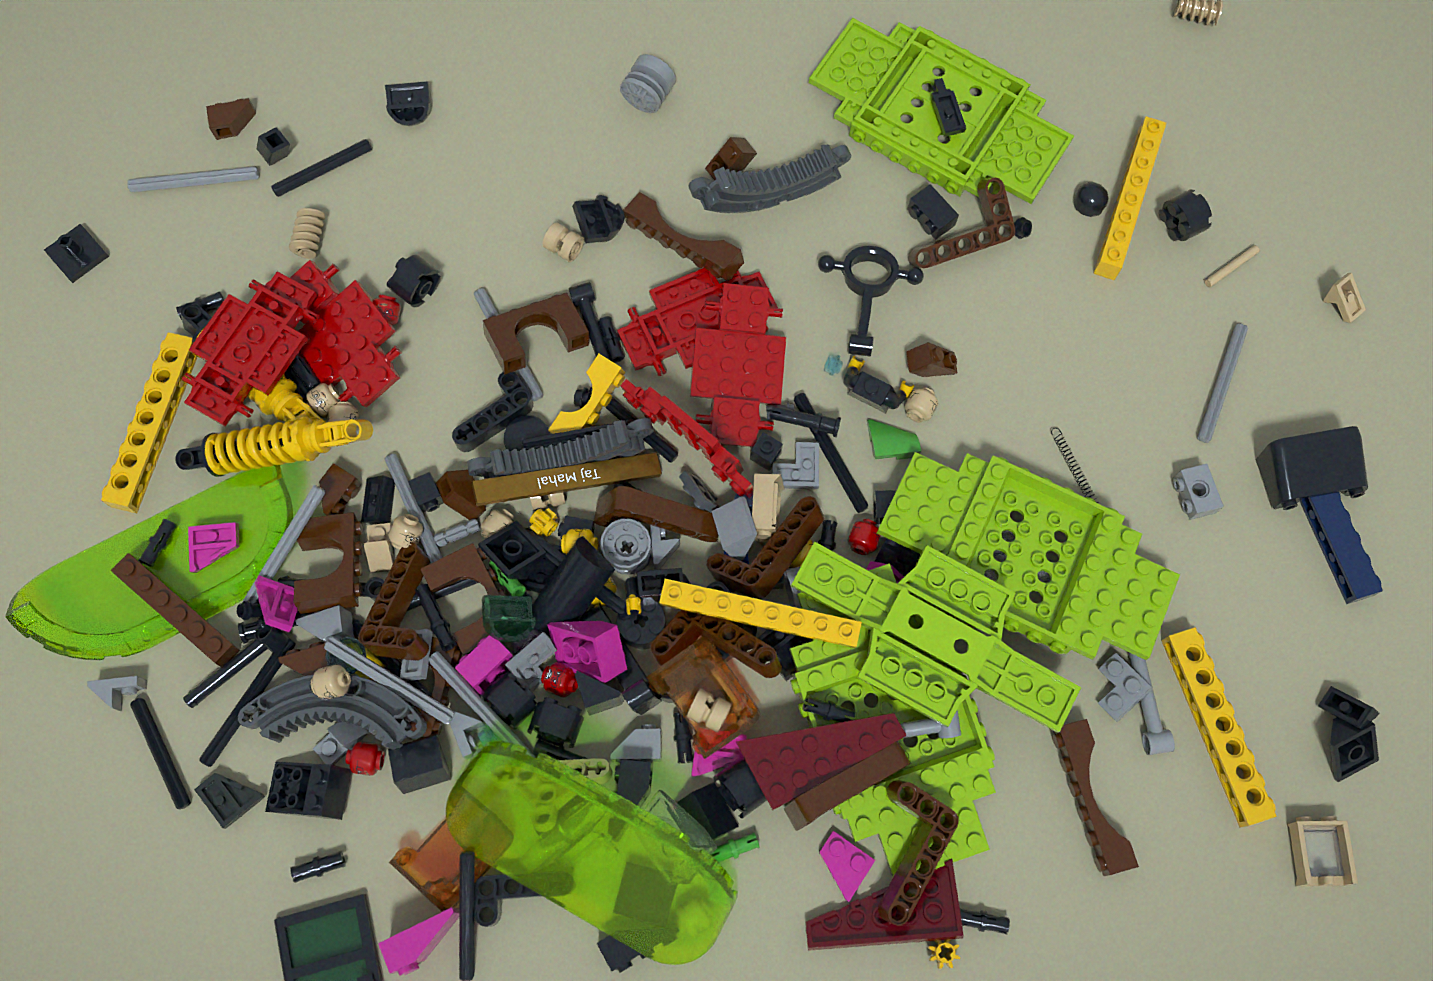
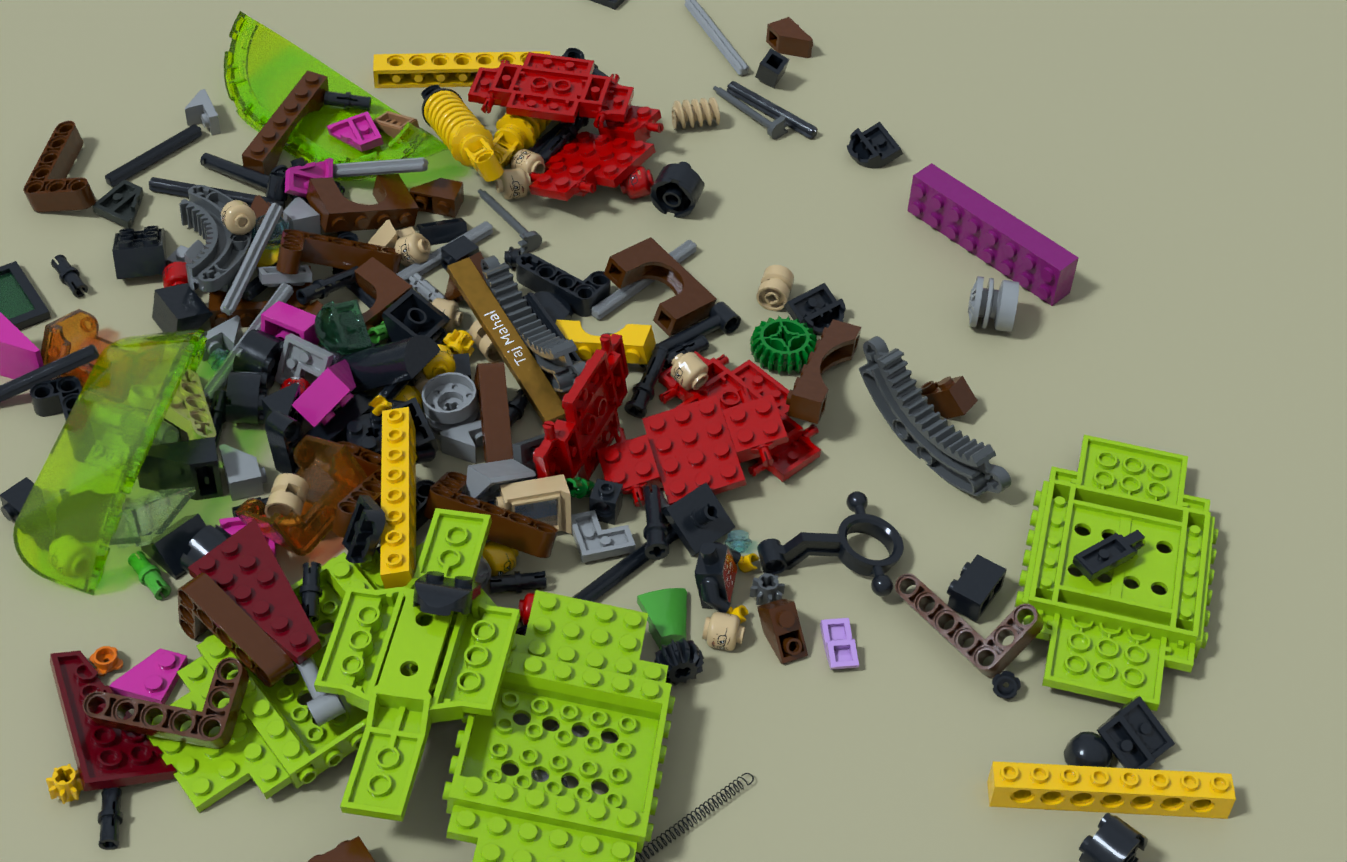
camera: 70 degrees right, 25 degrees down
(156, 859) = (48, 186): none -> reddish brown beam
(228, 498) = (393, 123): none -> medium nougat slope
(351, 173) = (774, 129): none -> dark grey piece
(423, 425) = (531, 239): none -> dark grey piece
(442, 447) = (511, 255): none -> black plate
(563, 53) = (992, 234): none -> magenta brick
(621, 252) = (782, 344): none -> green gear
(621, 360) = (644, 390): none -> black pin
(657, 340) = (689, 371): none -> tan head
(751, 466) = (580, 487): none -> green pin
(799, 648) = (364, 530): none -> black slope
(808, 385) = (698, 518): none -> black tile
(814, 907) = (105, 654): none -> orange plate
(894, 359) = (766, 589): none -> dark grey gear
(903, 599) = (442, 594): none -> black slope
(949, 445) = (683, 660): none -> black gear
(952, 328) = (838, 643): none -> lavender slope
(1090, 163) = (1135, 735): none -> black slope

